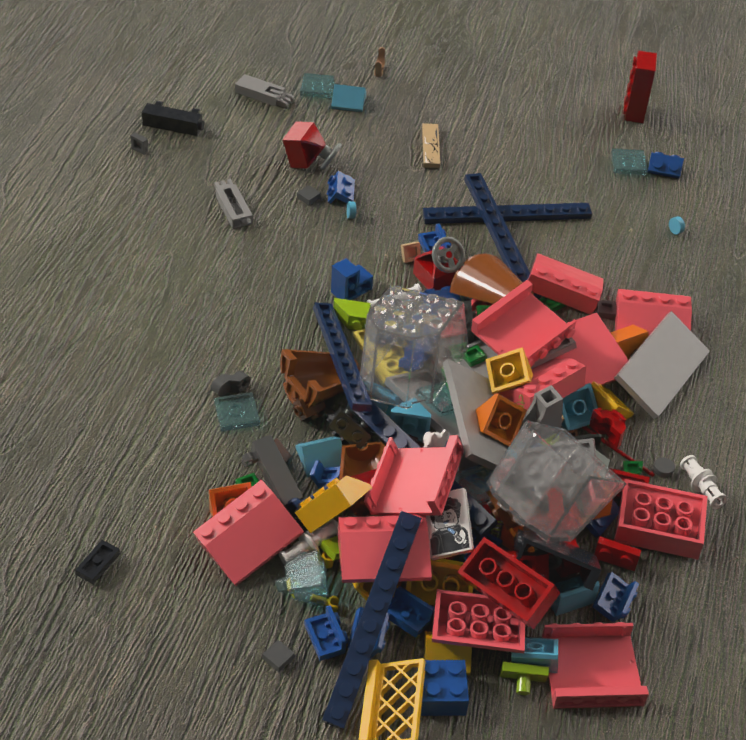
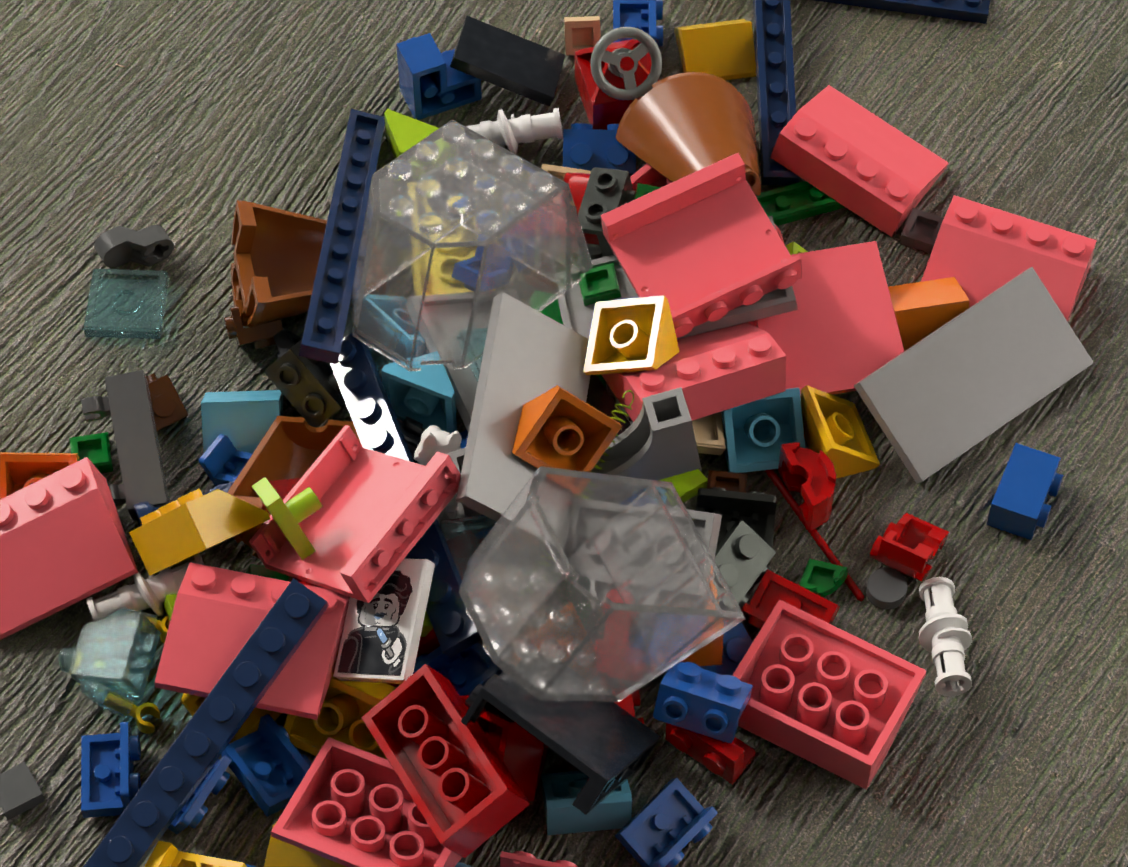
camera: 20 degrees right, 10 degrees up
(381, 483) = (290, 514): none -> lime tile
(382, 267) = (507, 61): none -> black tile
(477, 245) = (718, 49): none -> yellow slope
(614, 531) = (702, 701): none -> blue bracket
(668, 446) = (909, 546): none -> red cylinder
(707, 411) = (1024, 490): none -> blue brick

